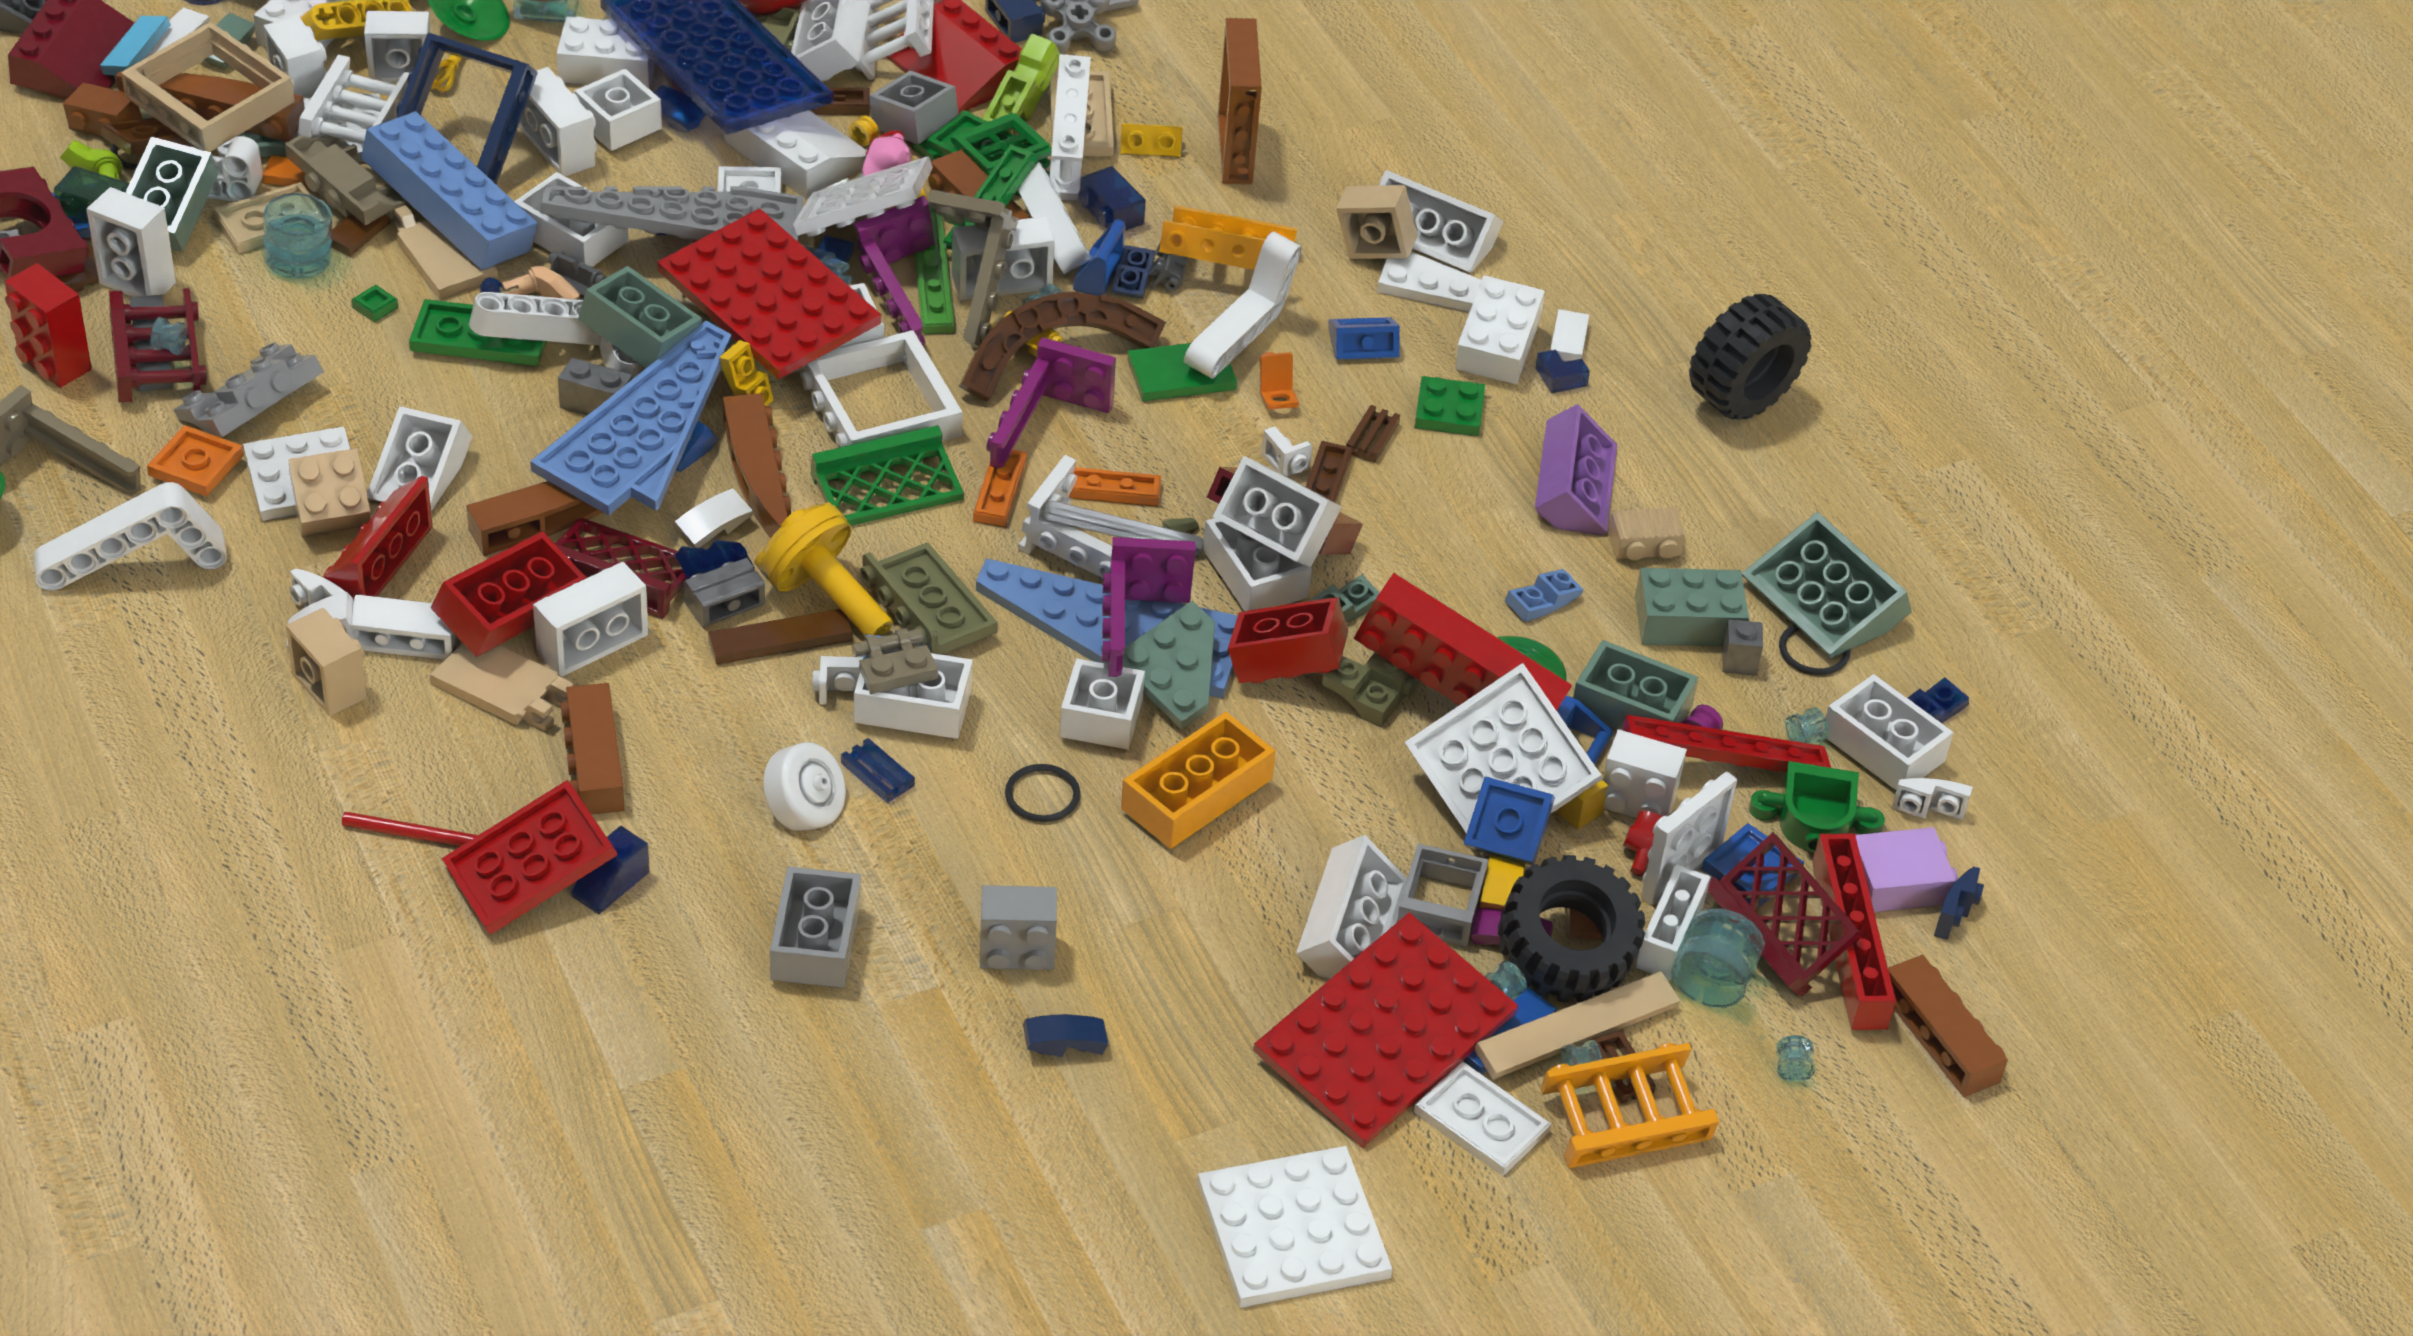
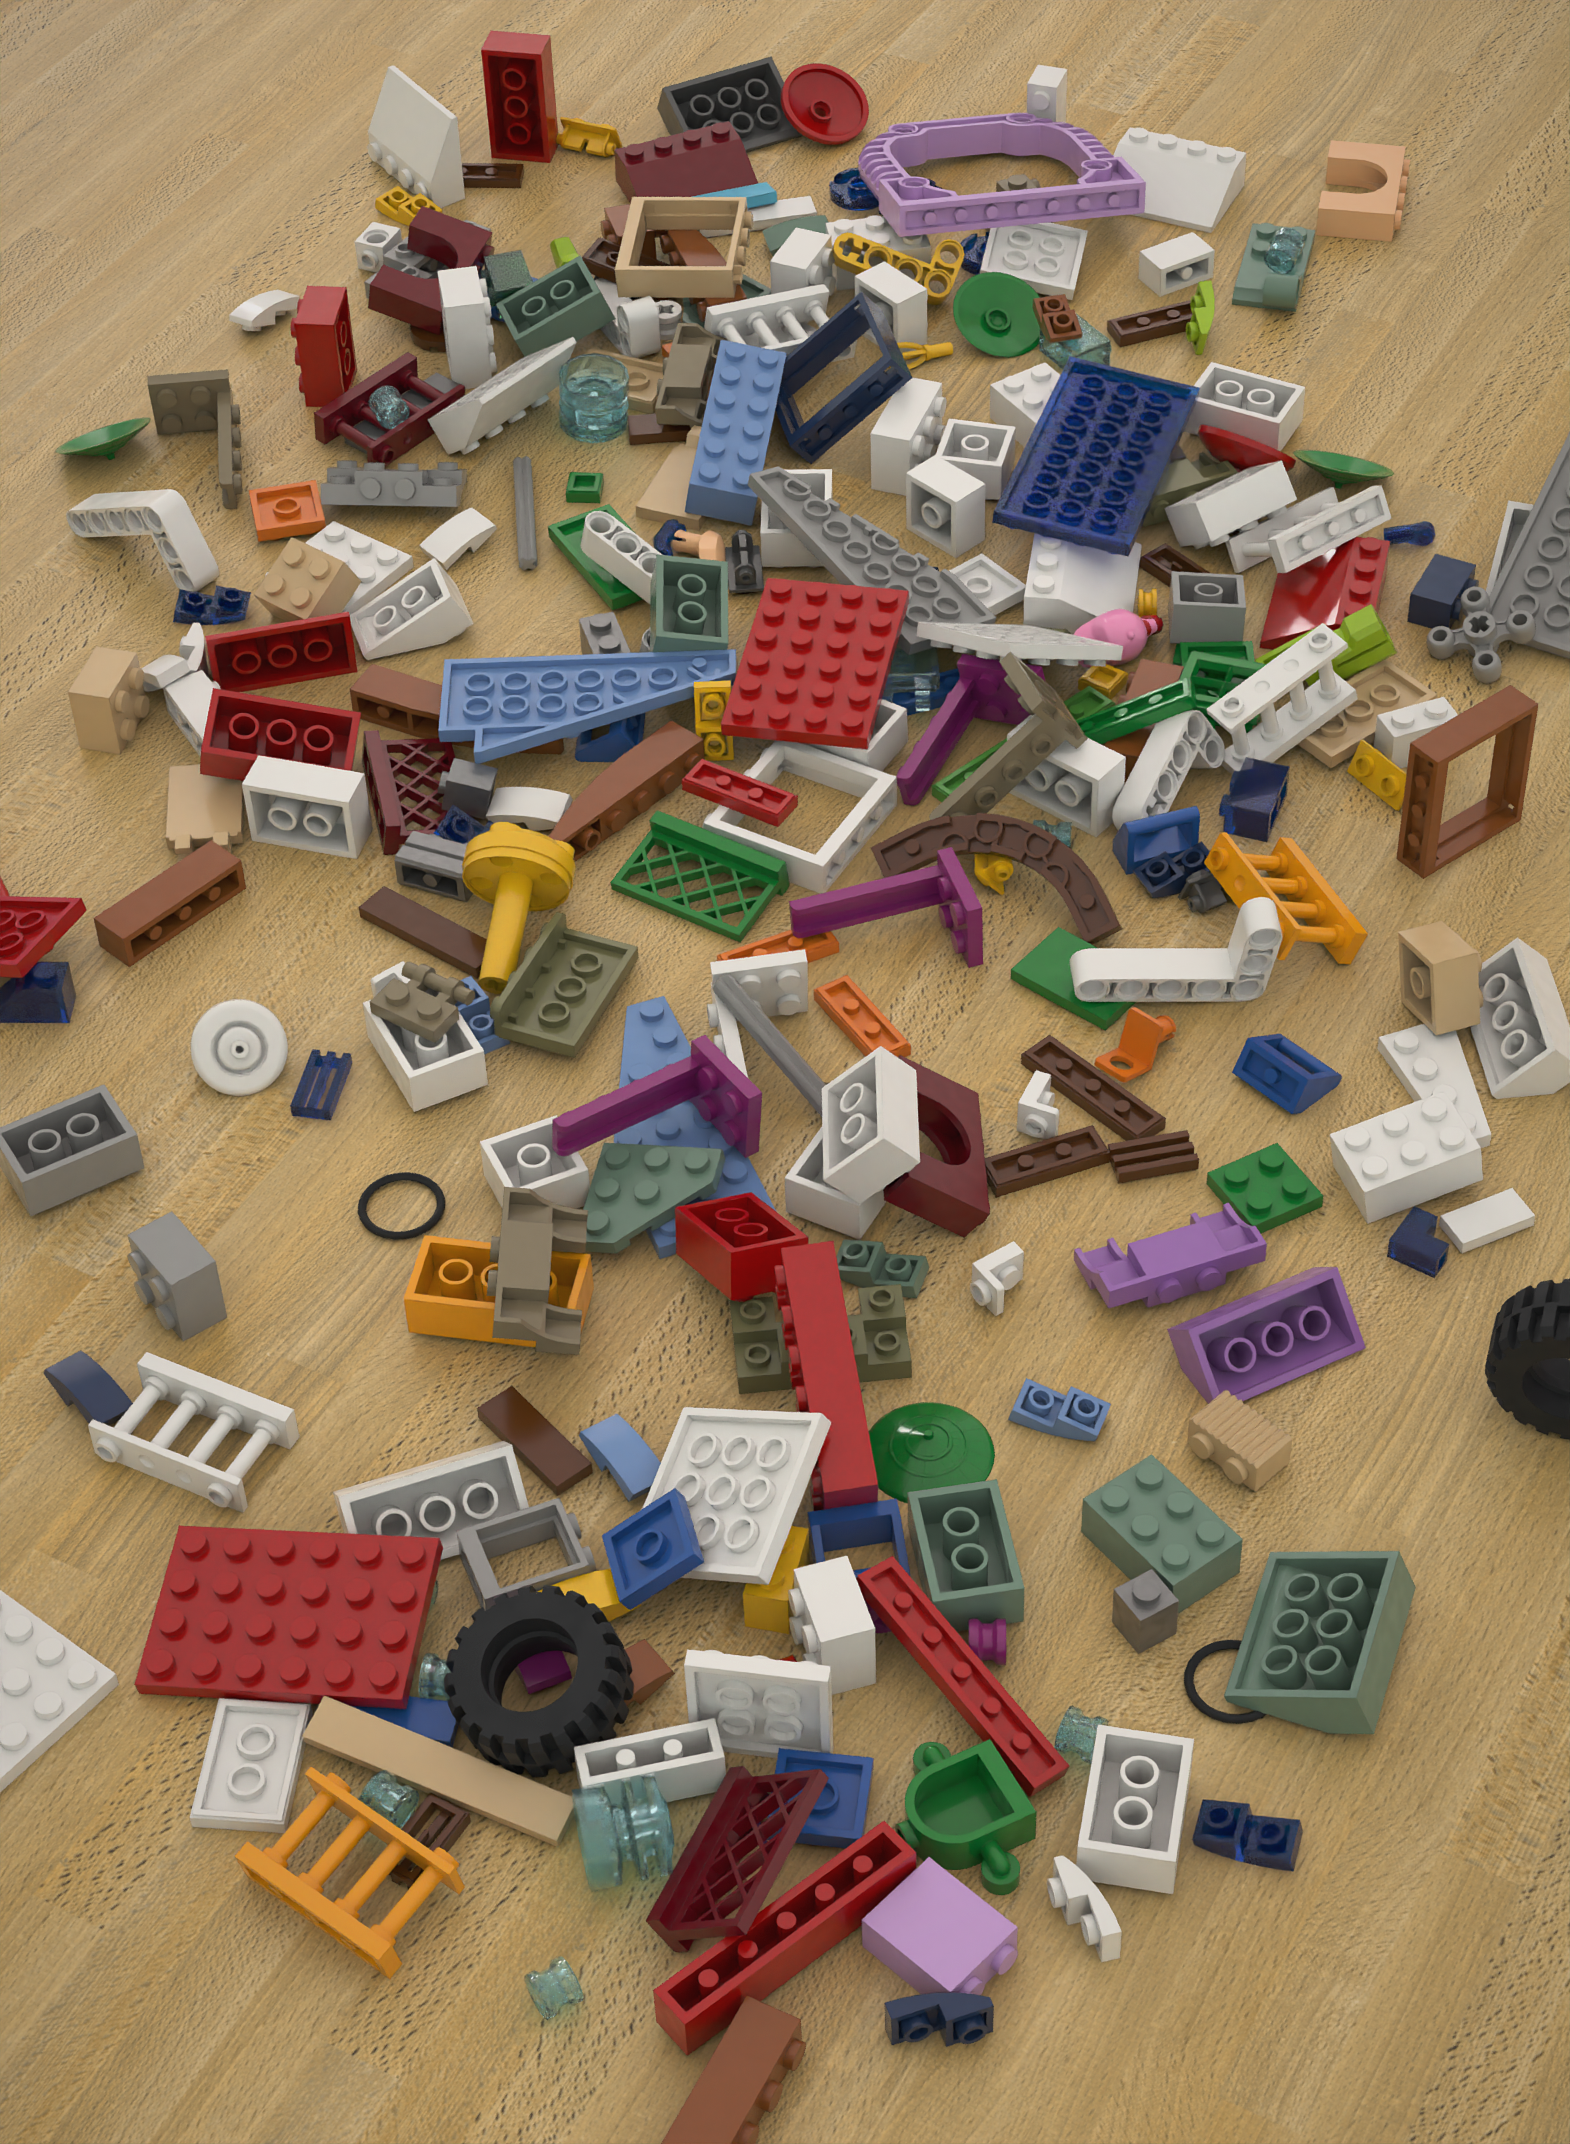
camera: 60 degrees right, 0 degrees up
(239, 271) = (501, 399): none -> white slope
(262, 558) = (224, 607): none -> clear blue slope
(355, 393) = (457, 535): none -> white slope
(366, 346) = (525, 513): none -> light grey axle
(657, 149) = (945, 506): none -> white brick
(666, 531) = (468, 787): none -> flat silver brick
(845, 405) = (740, 792): none -> red tile
(1135, 98) = (1402, 726): none -> white brick
(1151, 970) = (195, 1395): none -> white fence
(1230, 739) = (521, 1284): none -> dark tan bracket
(1293, 424) = (1093, 1090): none -> reddish brown tile
(1319, 838) = (535, 1440): none -> reddish brown tile
(1385, 800) = (623, 1453): none -> medium blue slope
(1412, 559) = (995, 1274): none -> white bracket
(1485, 473) = (1174, 1261): none -> medium lavender bracket

